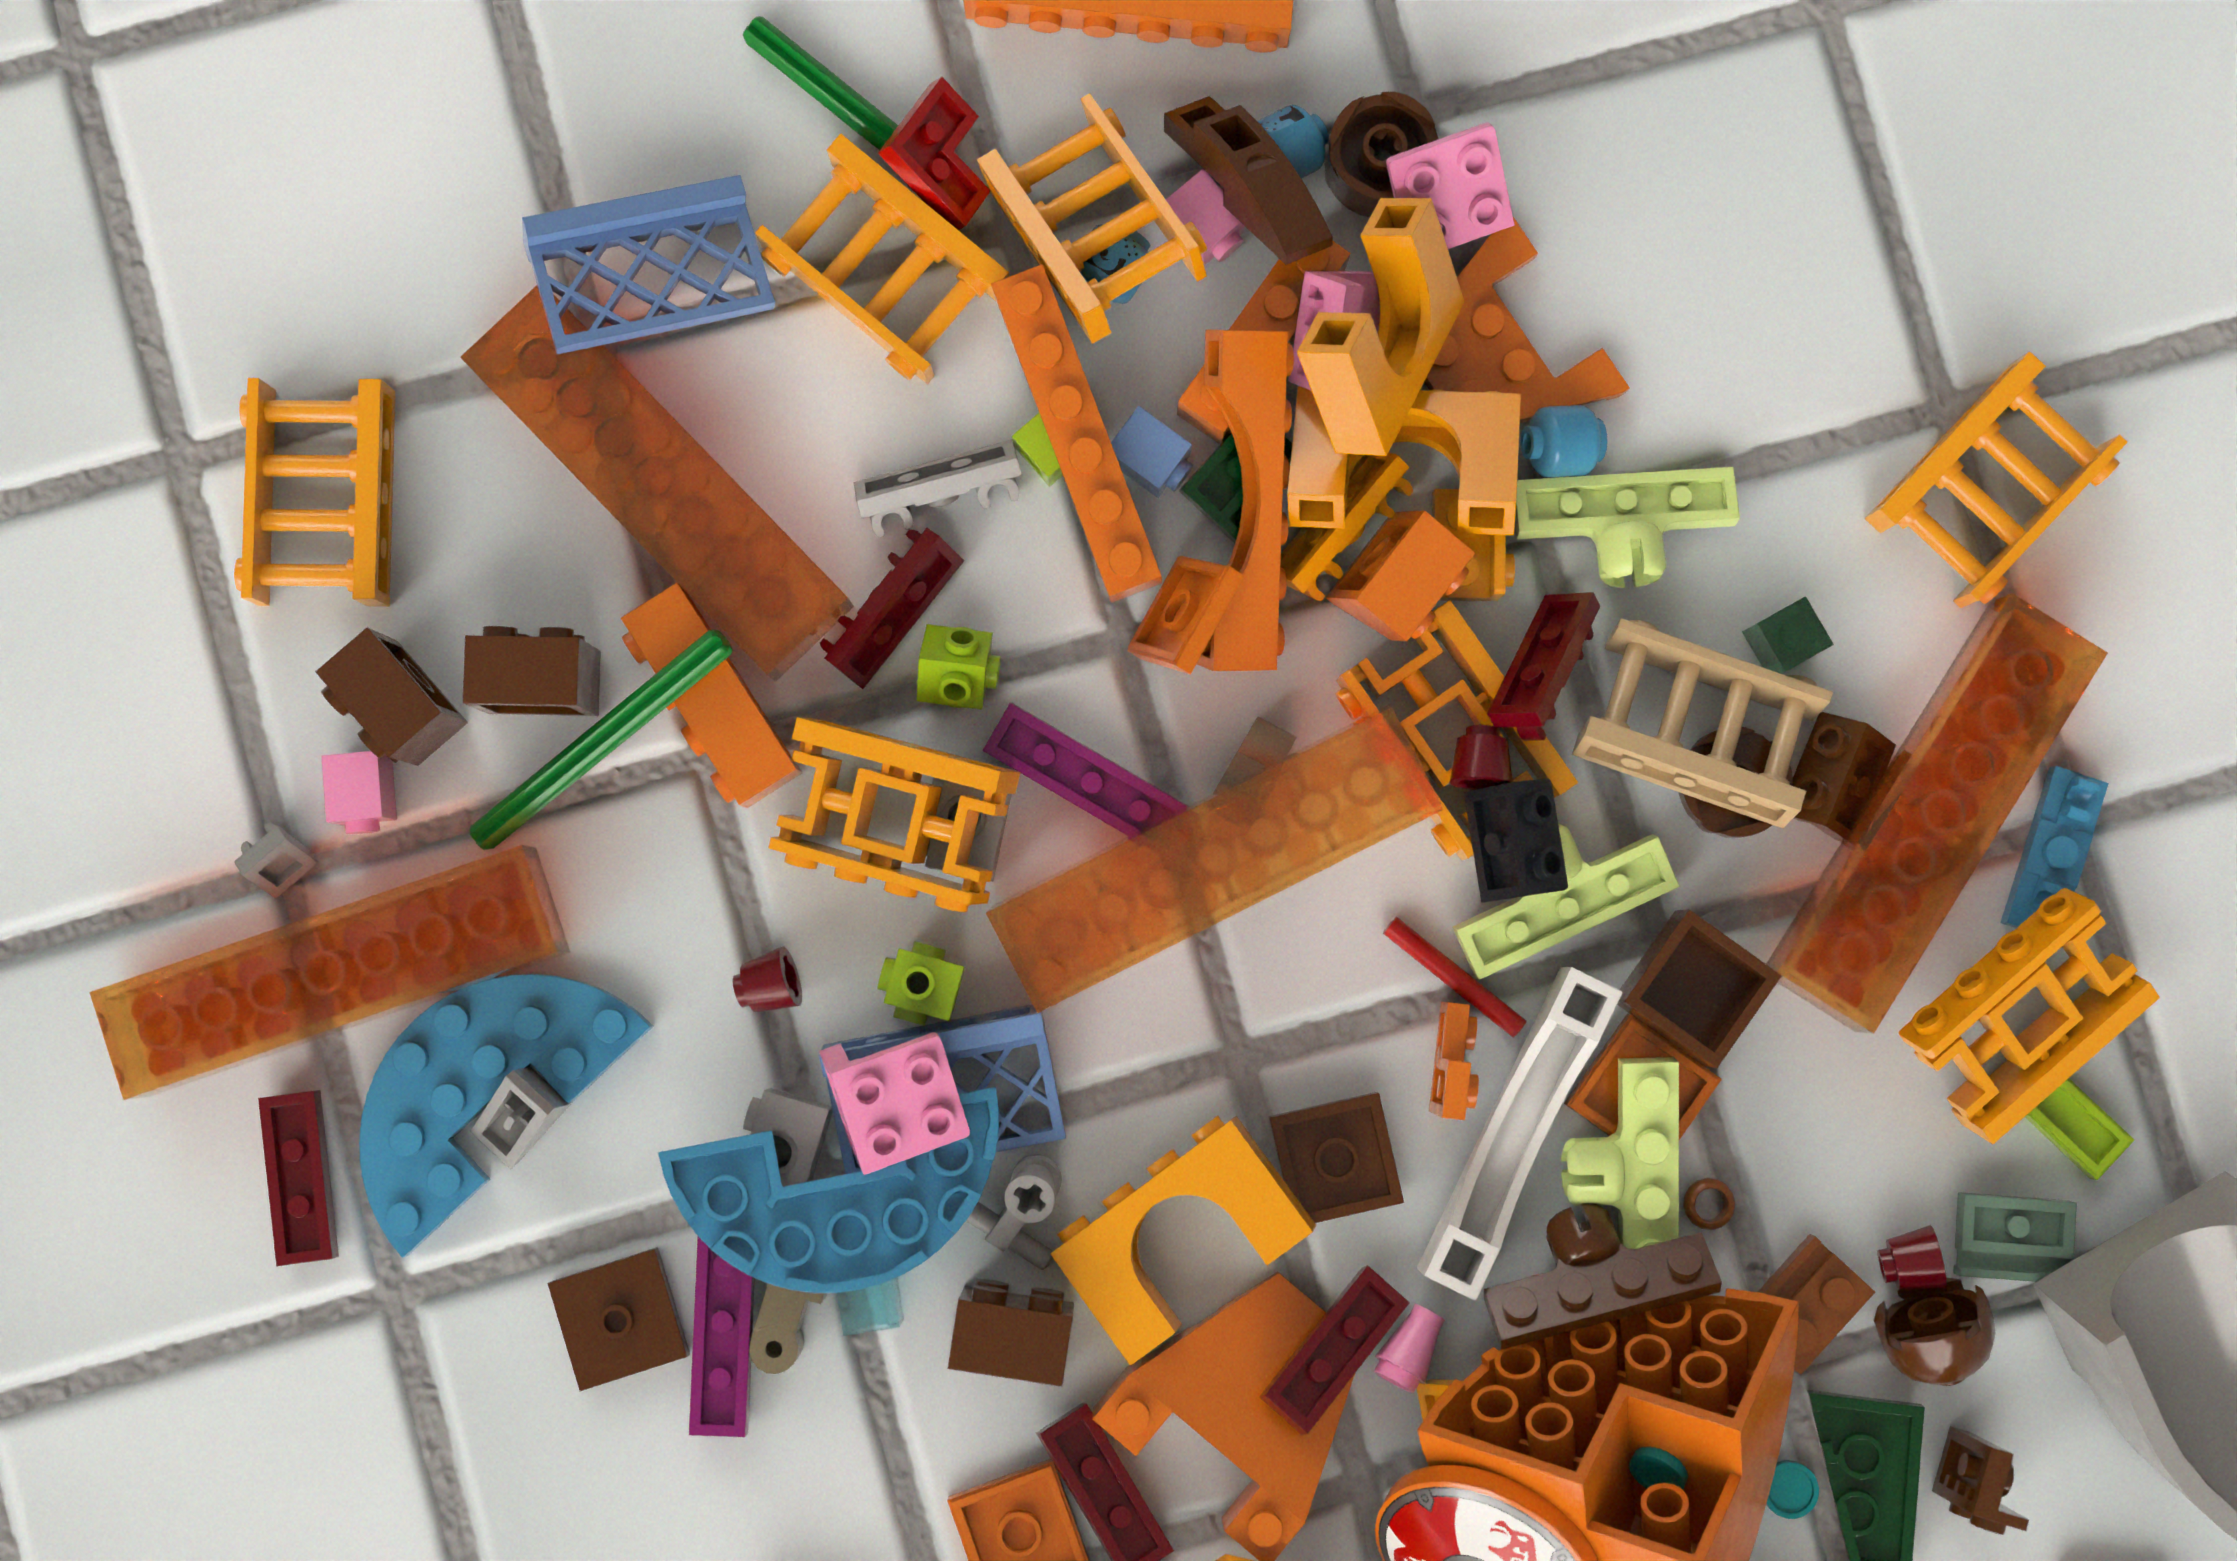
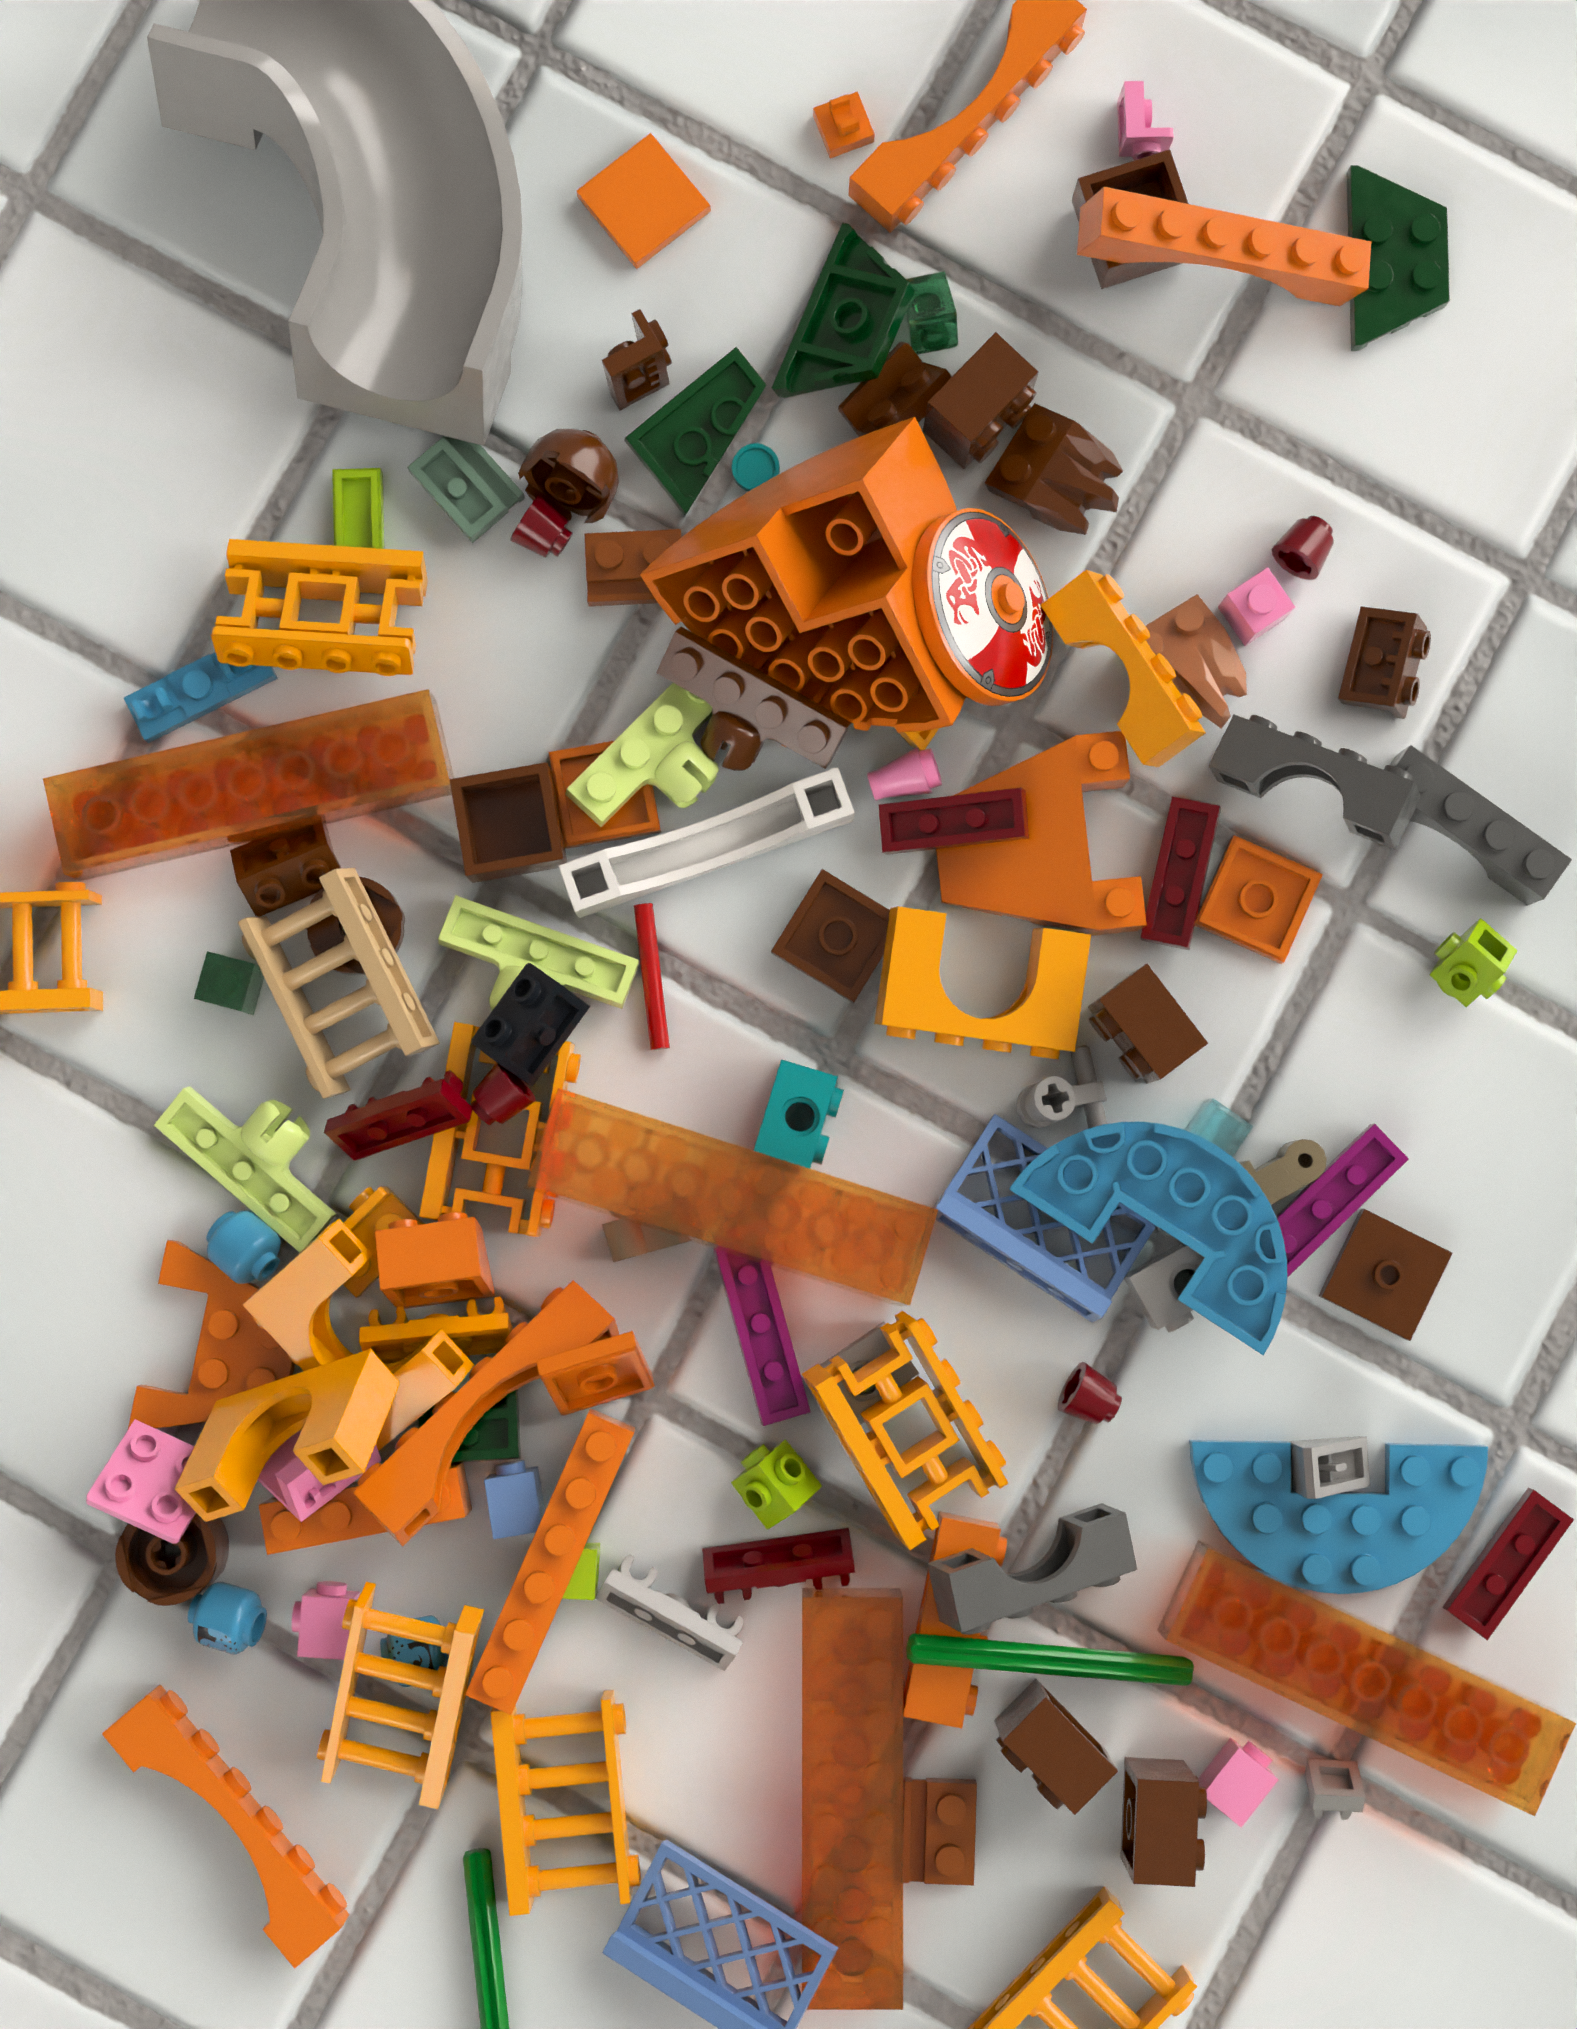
camera: 135 degrees left, 0 degrees up
(562, 522) = (939, 1830): none -> dark orange plate
(652, 855) = (1088, 1551): none -> dark grey arch
(896, 1101) = (1081, 1241): bright pink bracket -> none
(925, 155) = (469, 1845): red plate -> none
(943, 987) = (977, 1288): lime brick -> none
(1253, 997) = (793, 1086): none -> teal brick
(1255, 174) = (268, 1619): reddish brown slope -> none
(1452, 1083) = (718, 912): orange plate -> none
(1657, 1466) = (826, 562): teal piece -> none
(1690, 1200) = (635, 668): dark orange piece -> none

